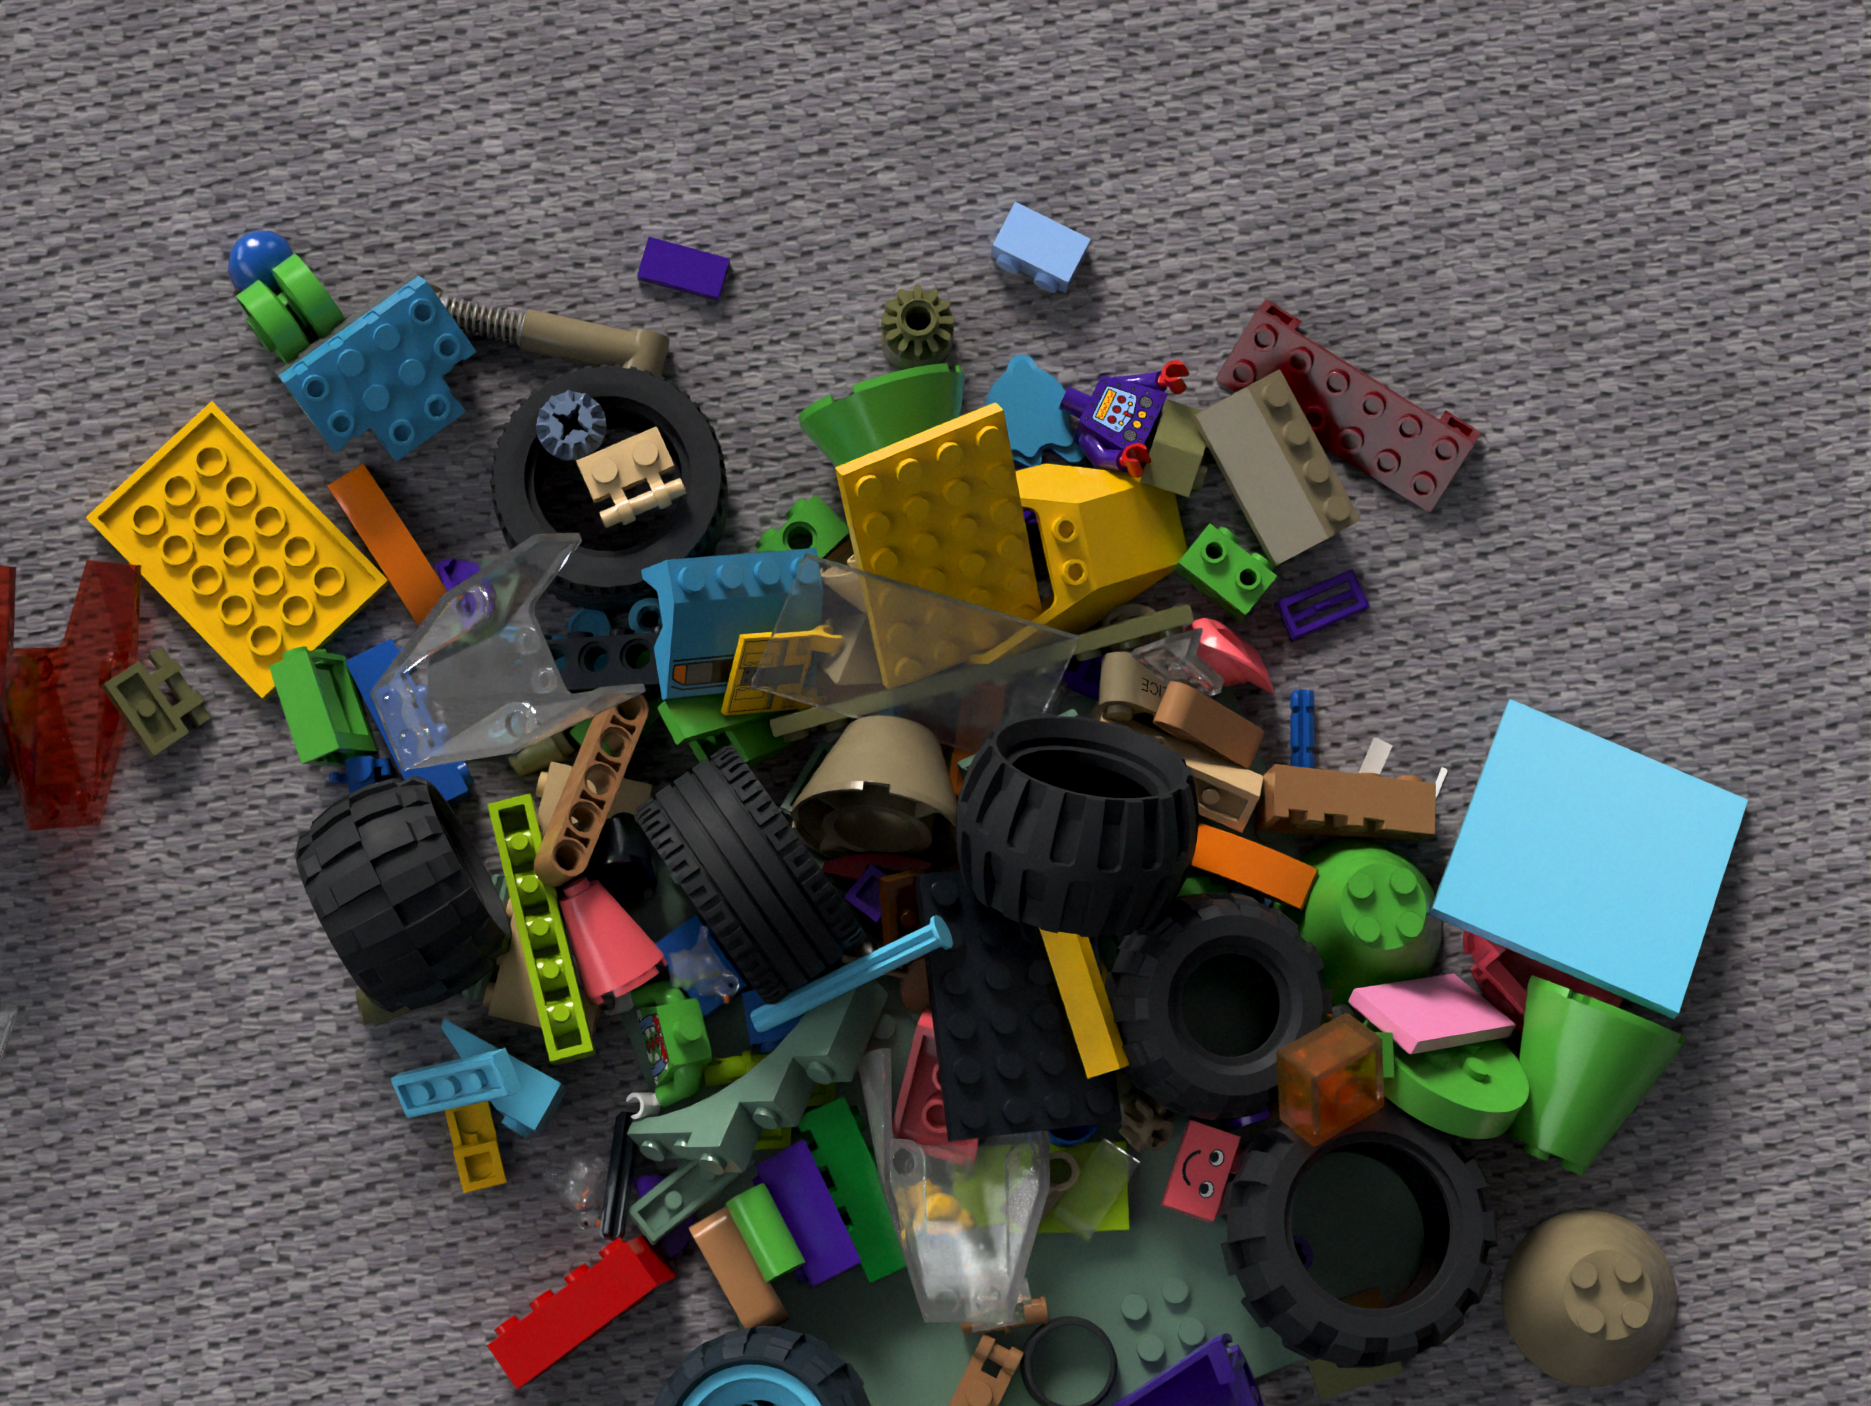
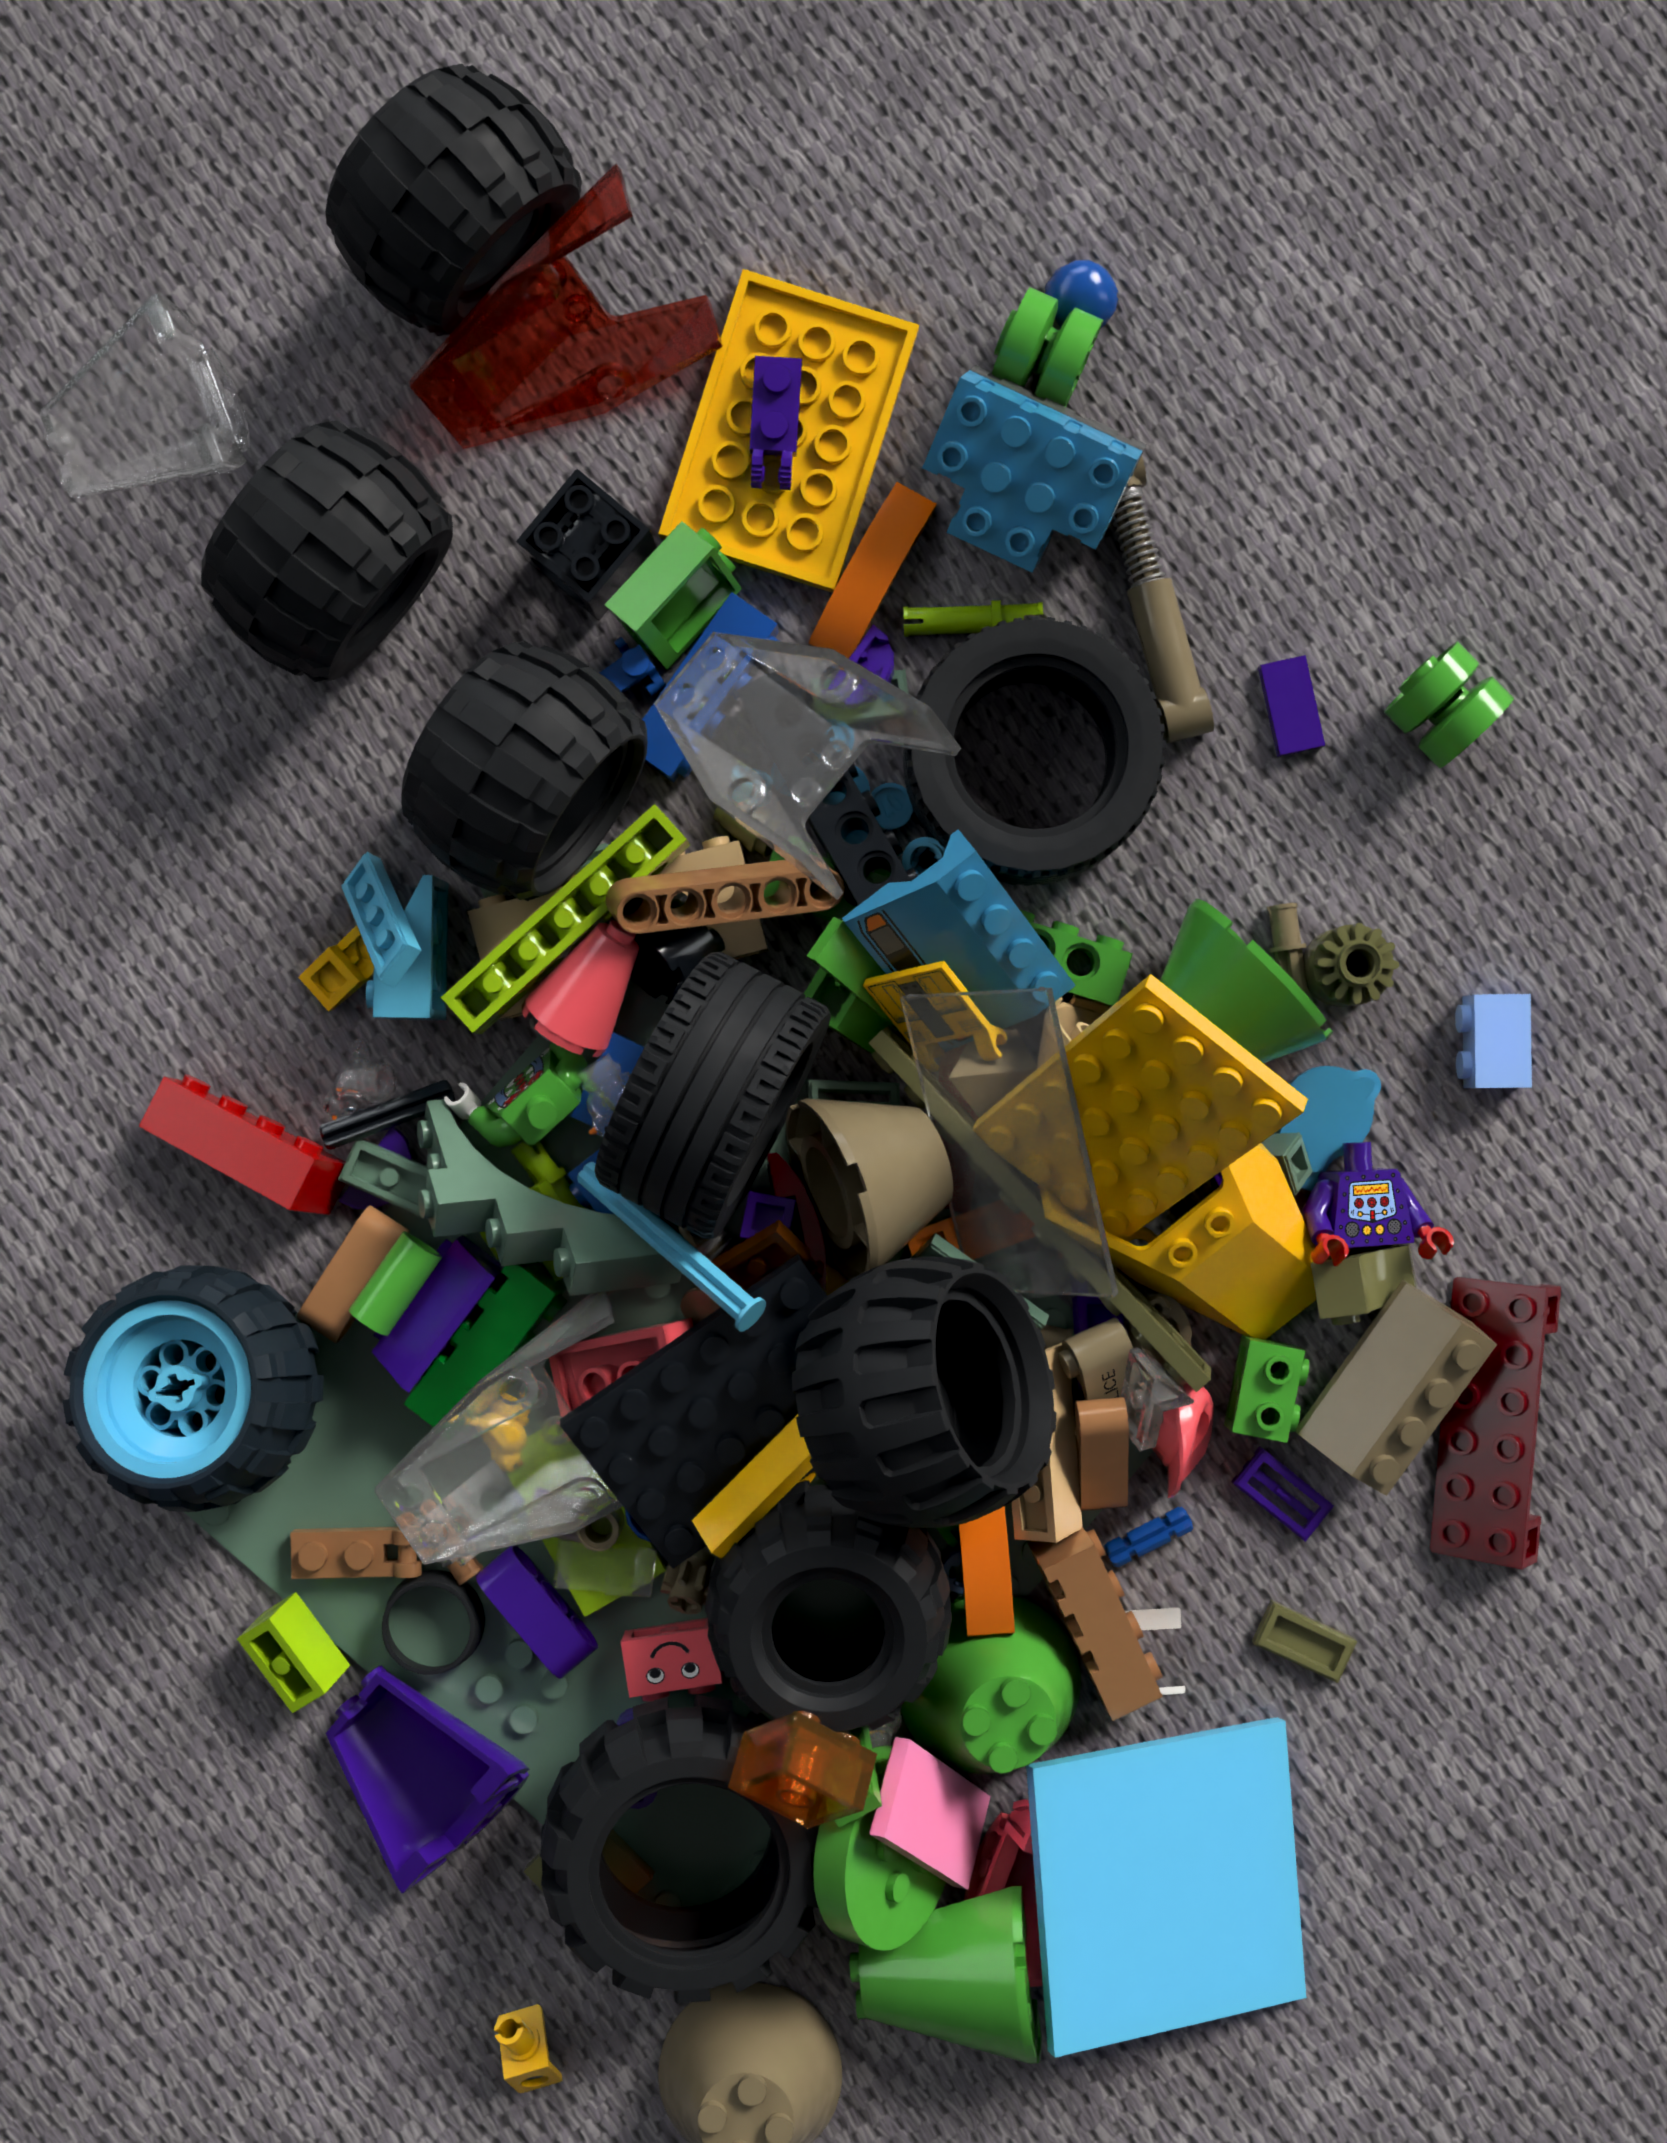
camera: 75 degrees right, 10 degrees up
(135, 962) = (325, 550): none -> black tyre
(146, 708) = (588, 429): olive plate -> none
(222, 553) = (775, 416): none -> dark purple hinge
(241, 757) = (586, 543): none -> black brick
(470, 487) = (965, 618): none -> lime pin
(577, 443) = (1051, 698): sand blue gear -> none
(626, 466) = (1053, 757): tan plate -> none
(738, 149) = (1439, 695): none -> bright green wheel
(863, 366) = (1287, 941): none -> dark tan axle
(1048, 452) = (1292, 1157): none -> sand green slope
(1103, 1267) = (536, 1611): none -> dark purple beam
(1452, 650) = (1304, 1641): none -> olive tile

